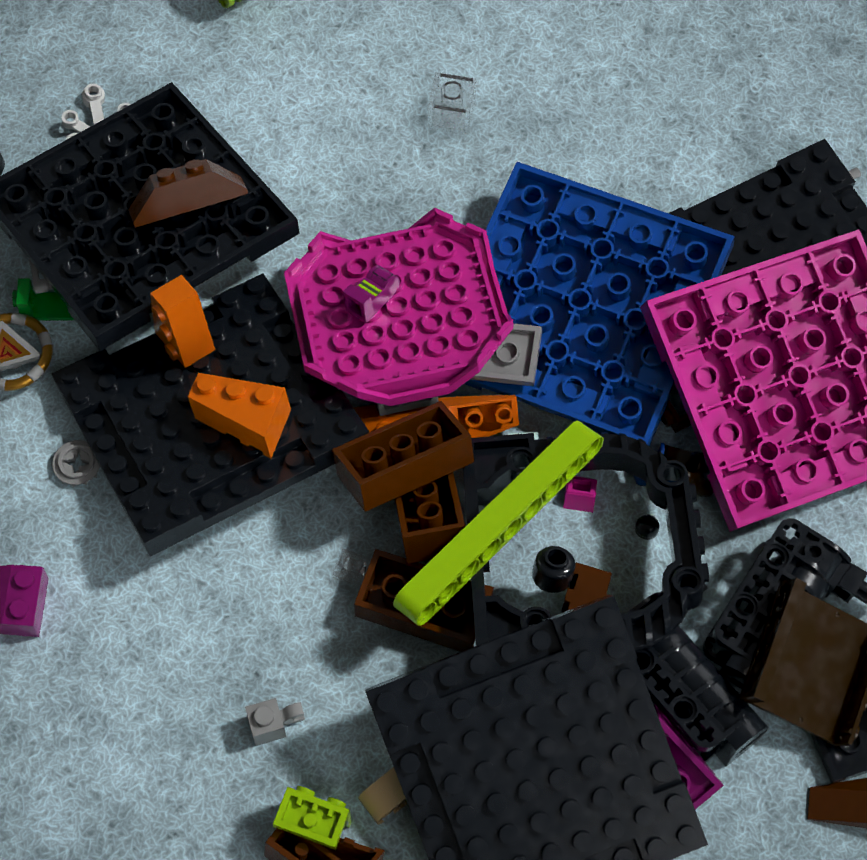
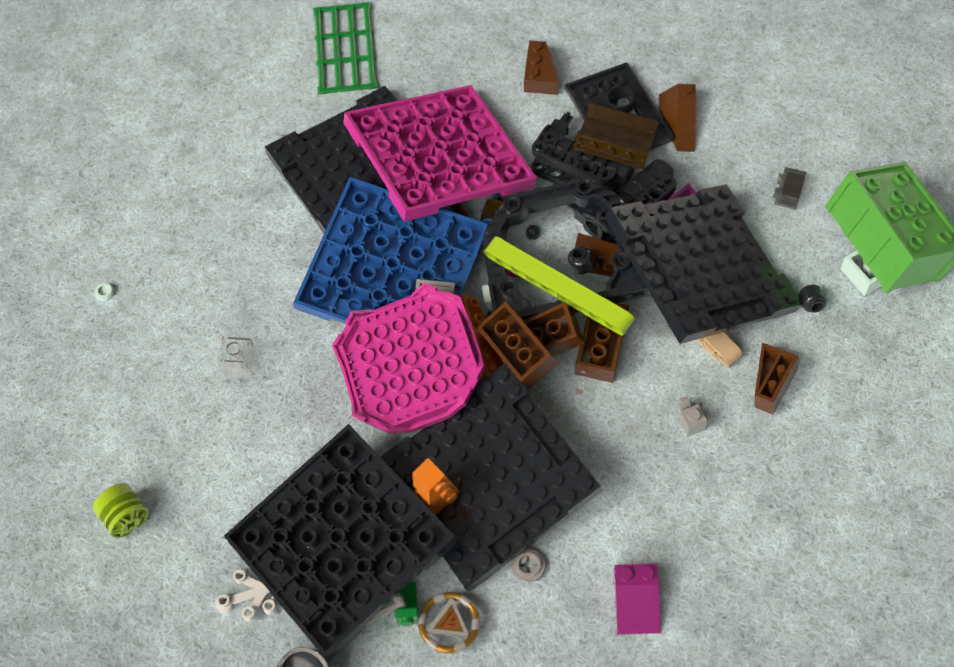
camera: 90 degrees left, 5 degrees down
(184, 190) = (329, 500): reddish brown wedge -> none
(241, 408) = (499, 437): orange wedge -> none
(312, 817) = (751, 378): lime bracket -> none
(371, 293) = (404, 371): magenta leg -> none

